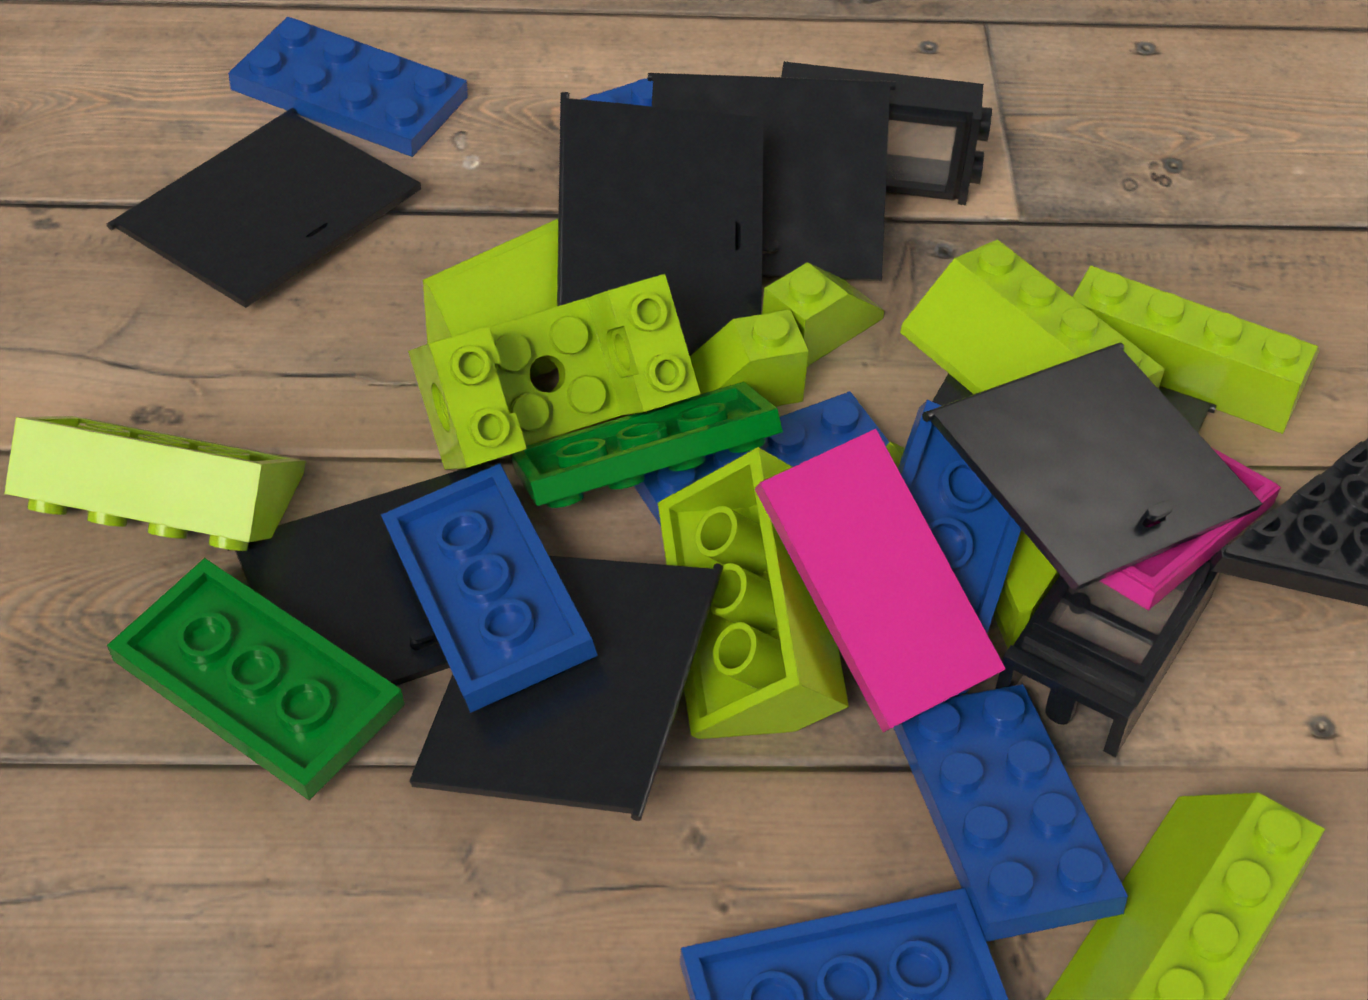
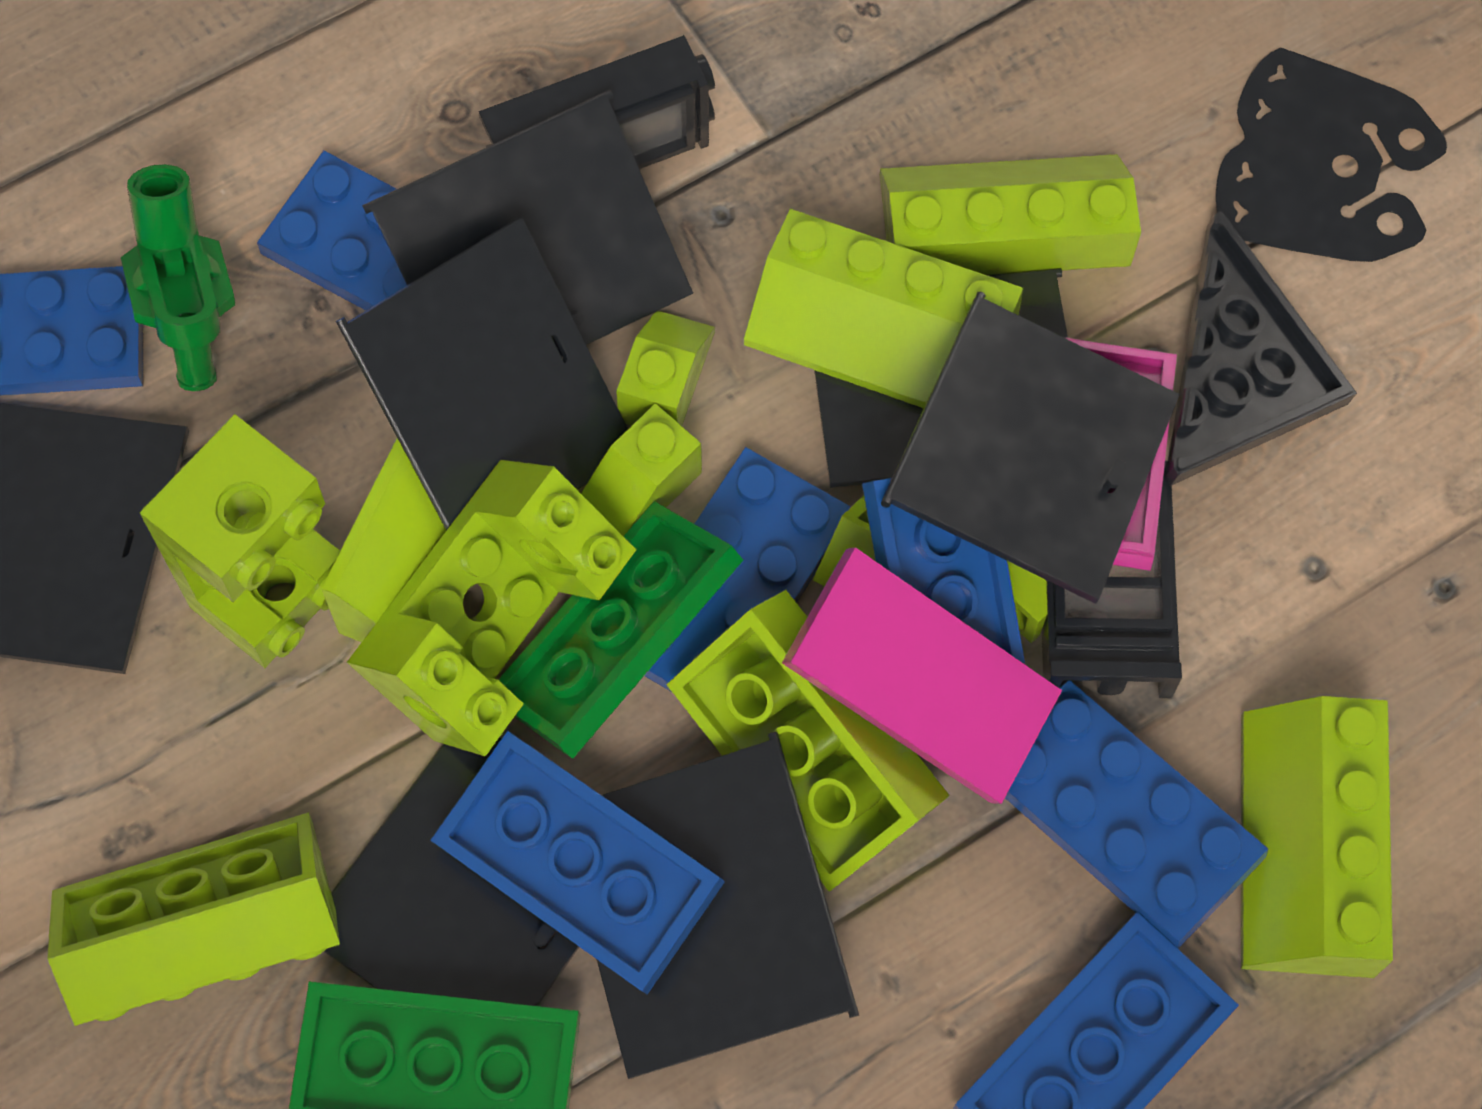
camera: 30 degrees left, 20 degrees up
(382, 205) = (237, 528): none -> lime plate
(486, 86) = (174, 273): none -> green piece

